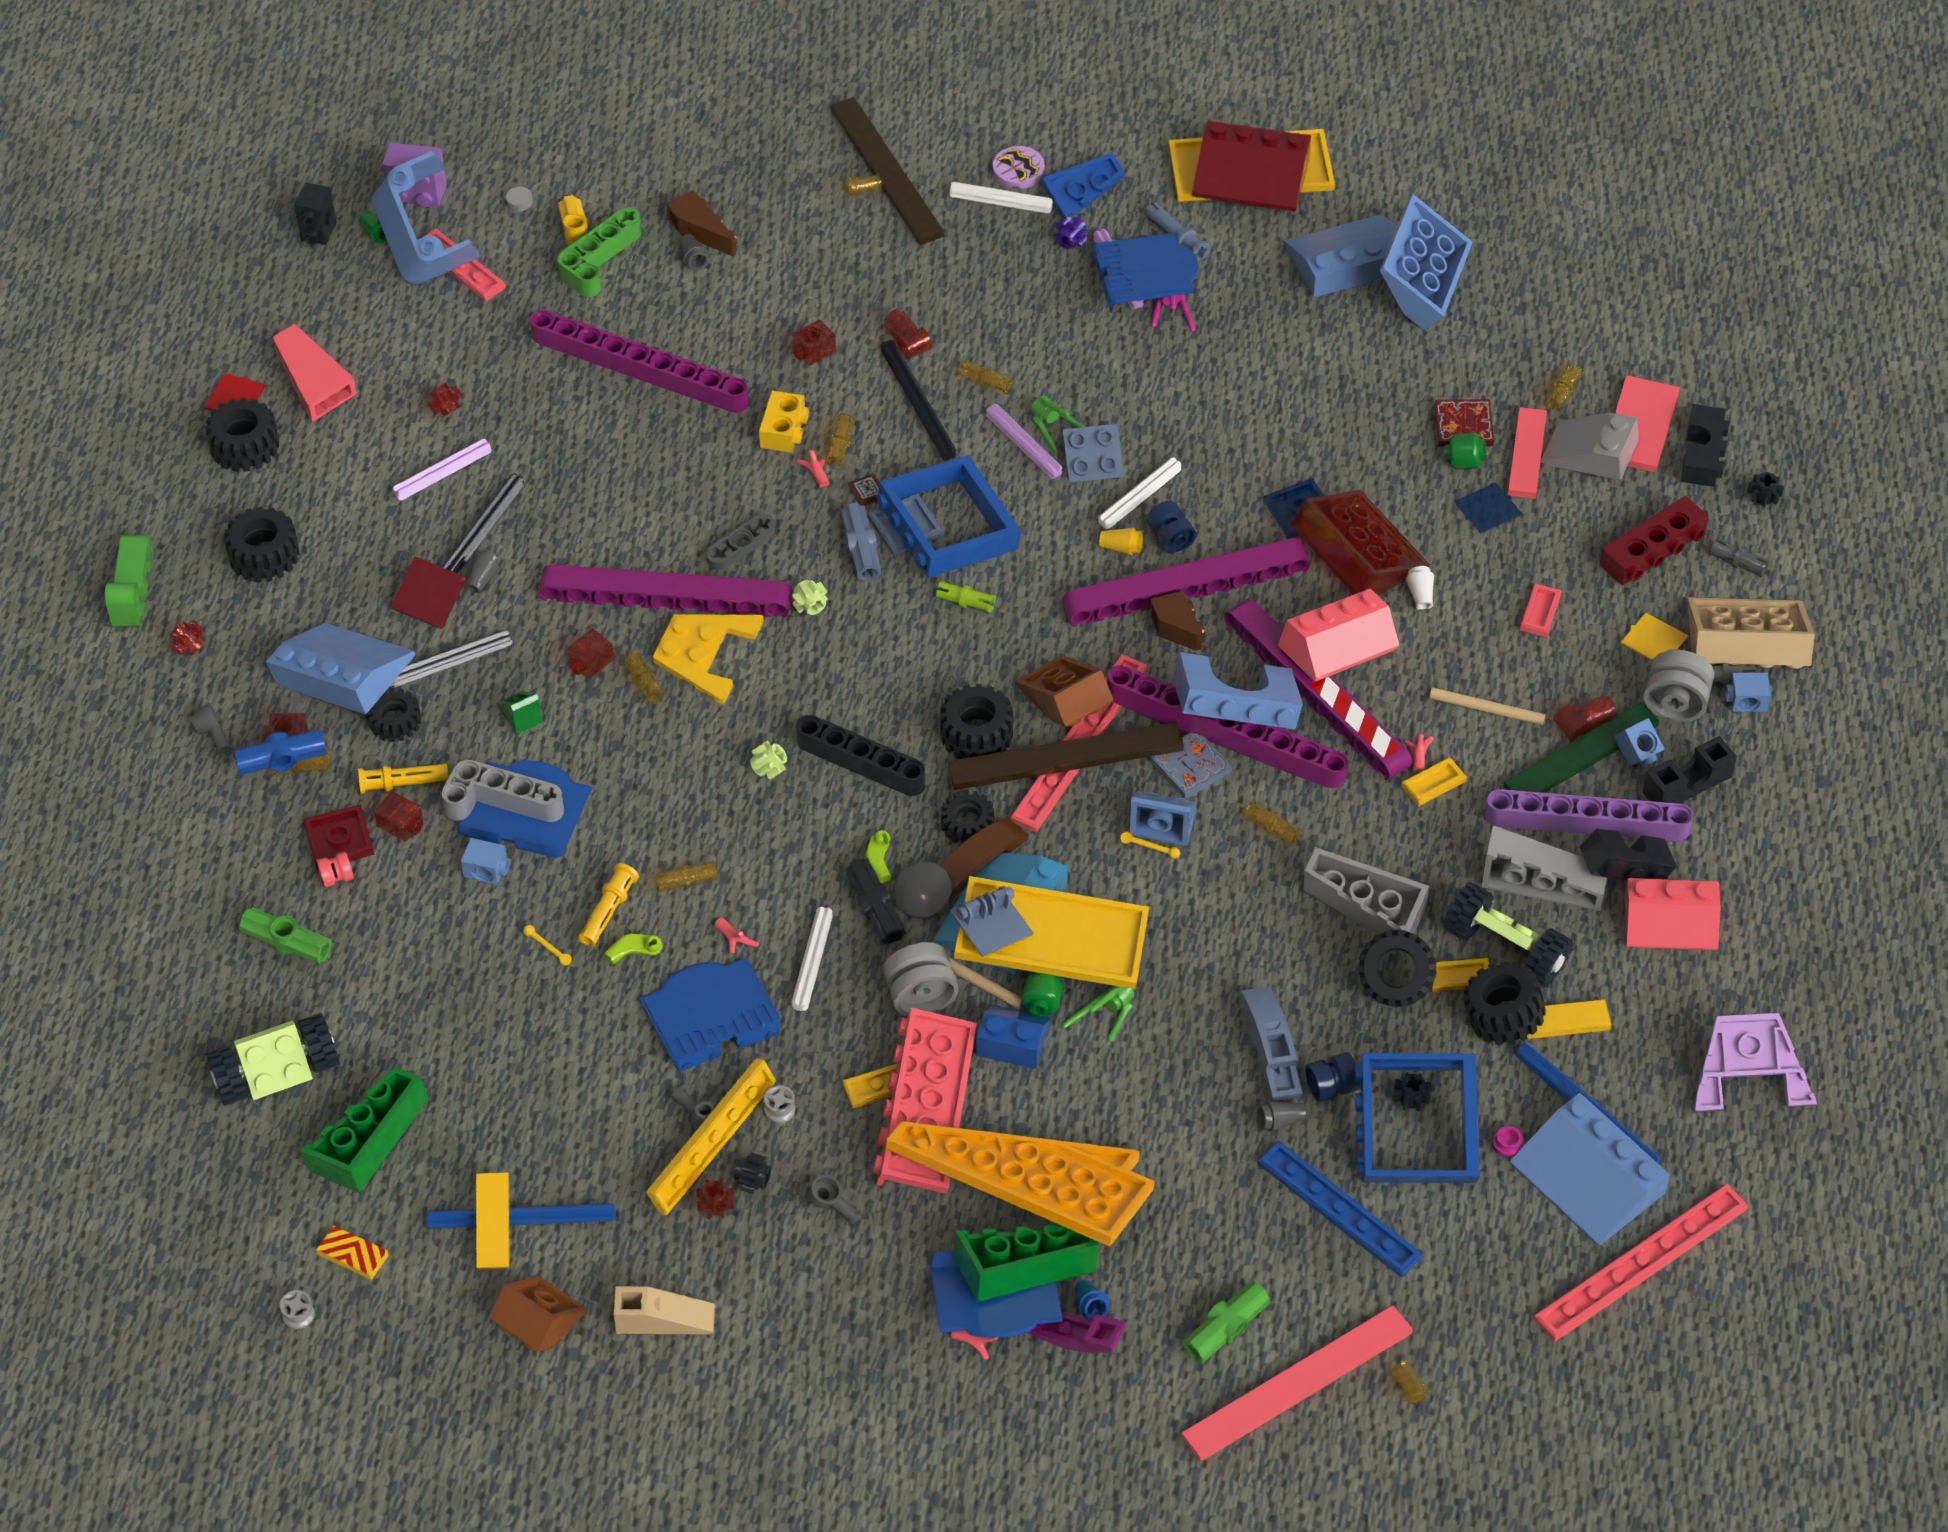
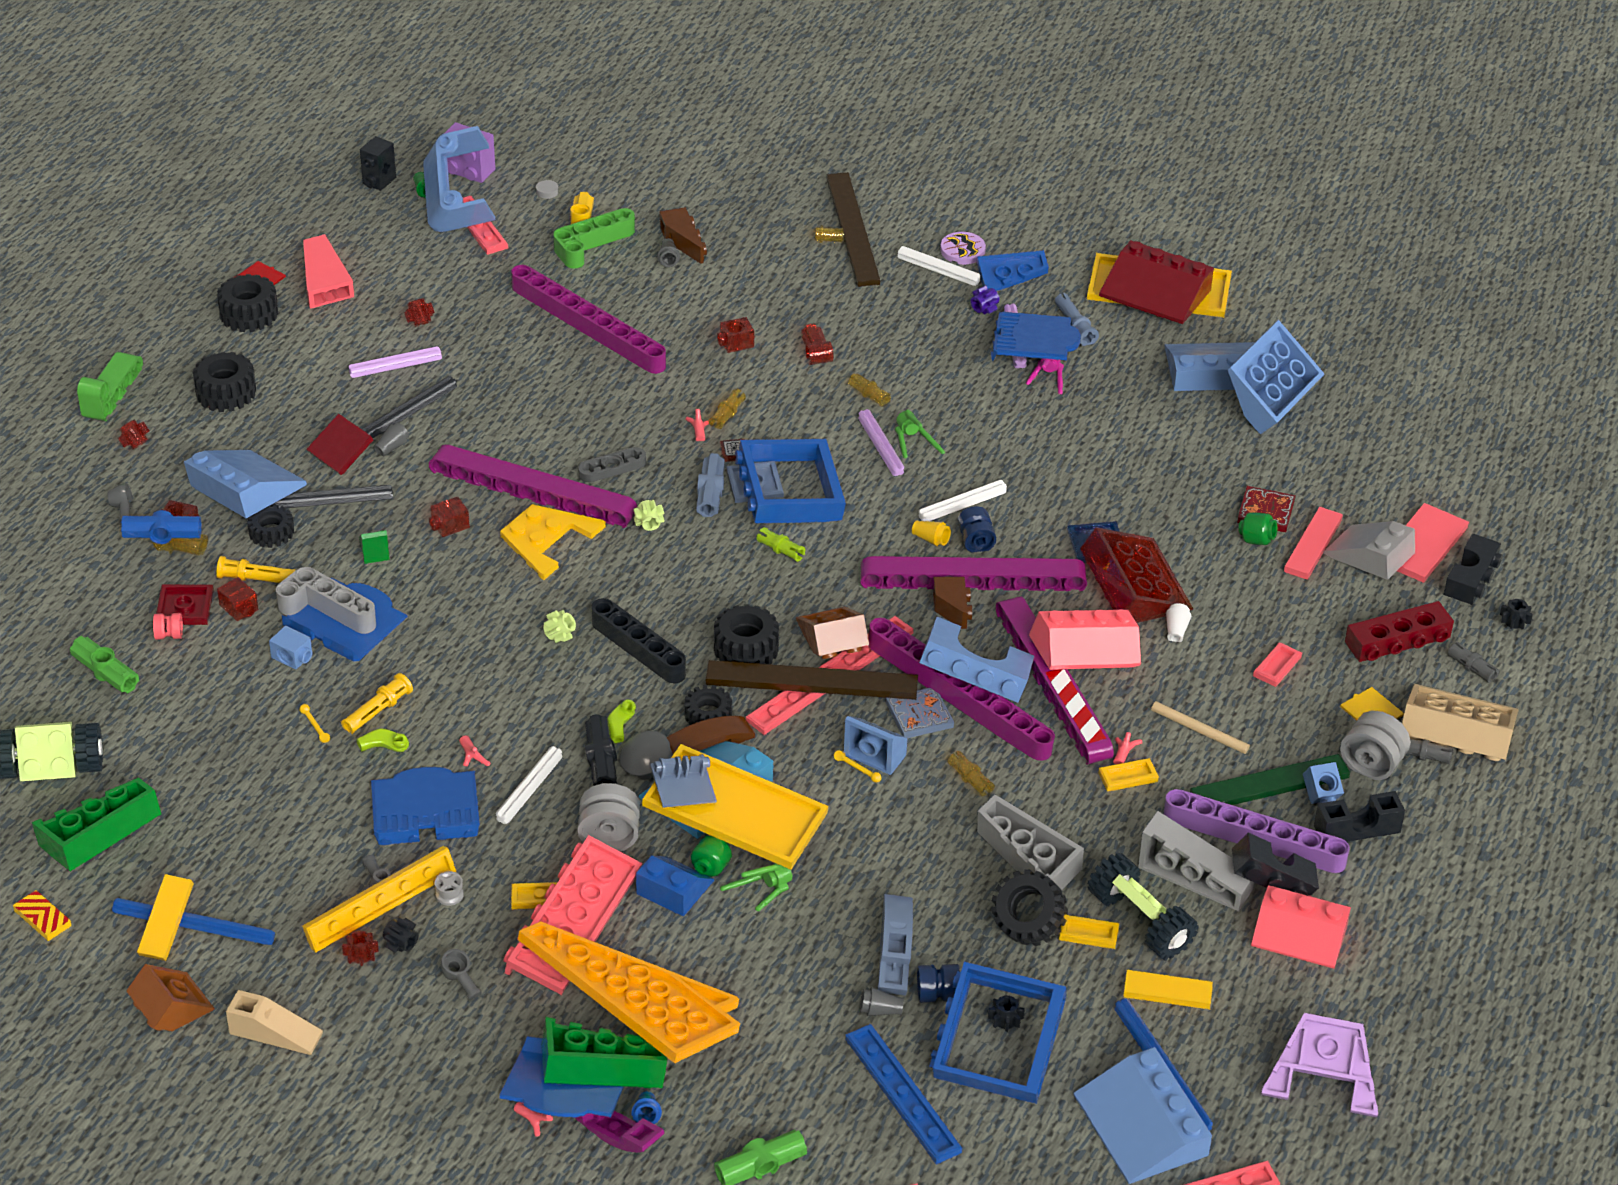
camera: 15 degrees right, 10 degrees down
(643, 677) = (486, 544): clear yellow pin -> none
(686, 876) = (452, 698): clear yellow pin -> none
(782, 421) = (685, 385): yellow brick -> none
(918, 400) = (805, 393): black axle -> none
(986, 984) = (665, 837): tan bar -> none
(1093, 453) = (934, 462): sand blue hinge -> none
(1488, 507) = (1262, 577): clear blue piece -> none
(1508, 1021) = (1116, 960): black tyre -> none
(1508, 1141) = (1078, 1075): dark pink plate -> none
(1563, 387) = (1365, 500): clear yellow pin -> none
(1581, 719) = (1275, 755): clear red piece -> none
(1748, 692) = (1440, 767): medium blue brick -> none

